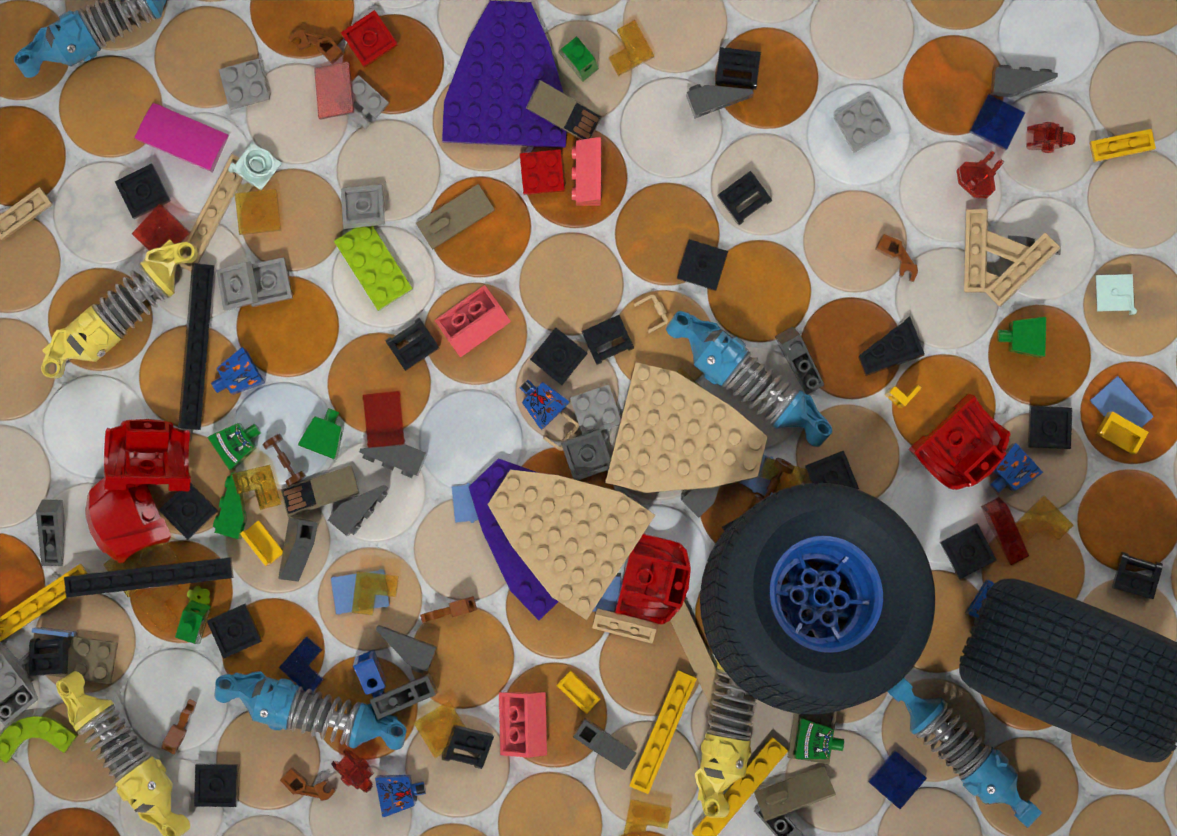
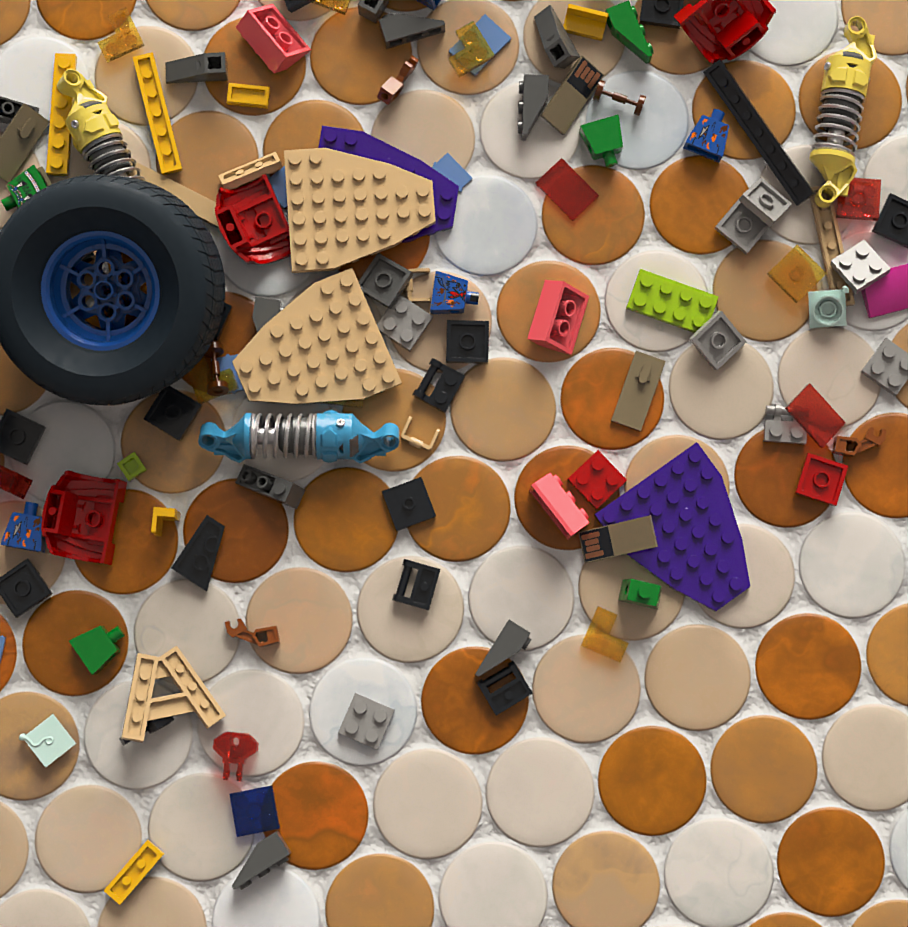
camera: 130 degrees right, 5 degrees down
(205, 177) = (860, 266): none -> plate
(234, 443) = (667, 81): green torso -> none
(261, 481) = (623, 67): clear yellow plate -> none
(402, 457) = (529, 168): dark grey slope -> none
(416, 349) = (584, 262): black plate -> none
(895, 458) = (131, 466): none -> lime plate
(1049, 137) = (199, 829): clear red hinge -> none

